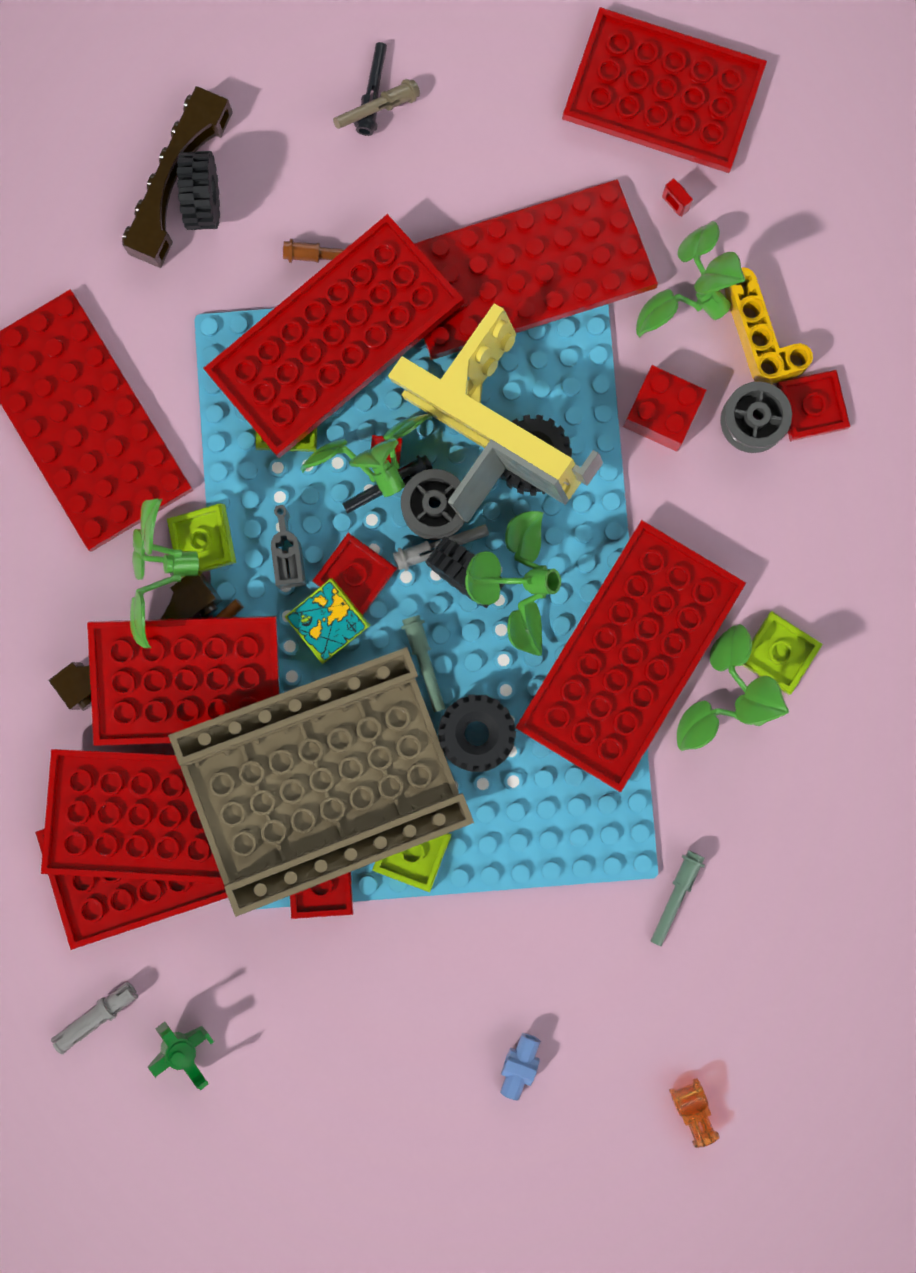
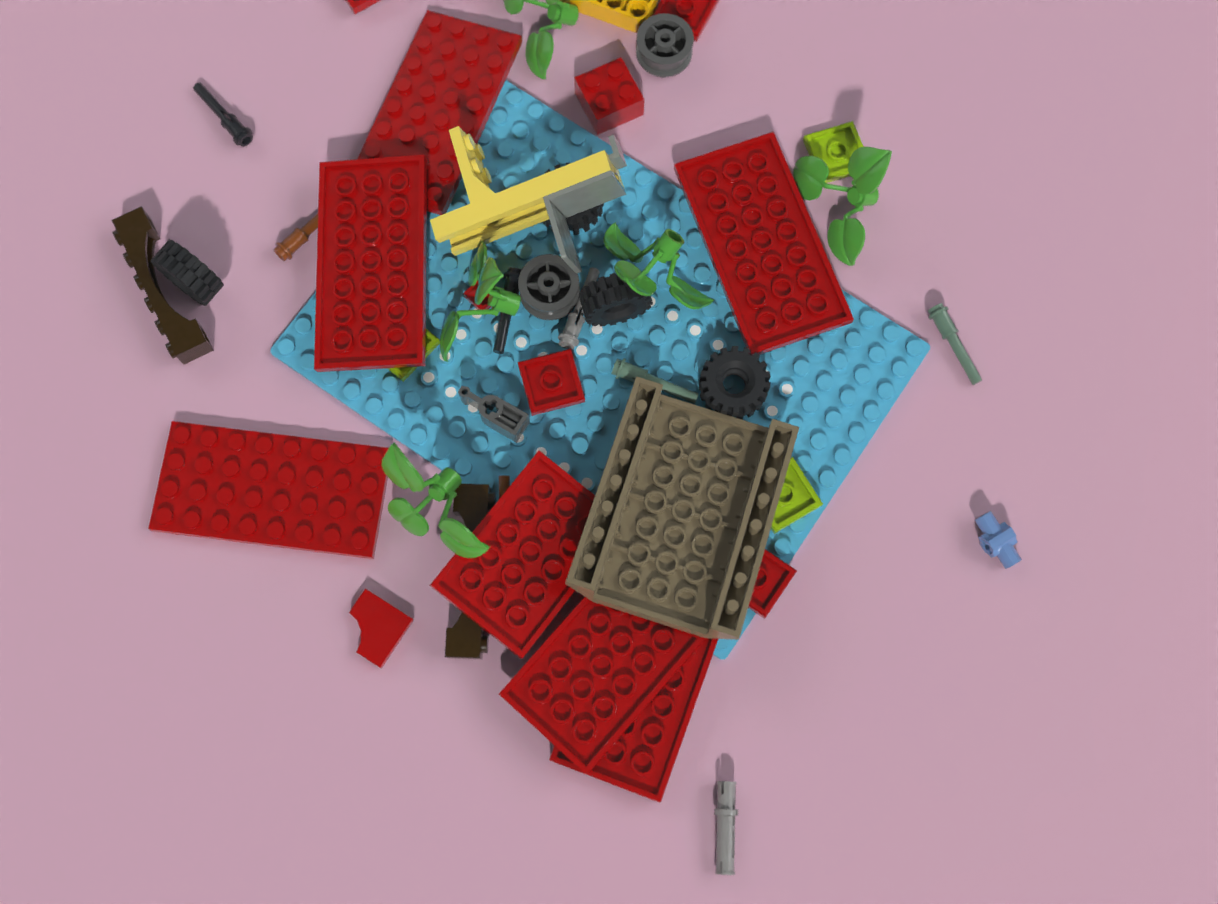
camera: 55 degrees left, 10 degrees down
(38, 605) = (380, 627): none -> red tile
(179, 1053) = (802, 777): green piece -> none
(206, 533) = (432, 456): lime tile -> none
(327, 621) = (569, 423): tile -> none
(389, 99) = (244, 94): dark tan pin -> none
(693, 1108) = (1115, 444): clear orange connector -> none

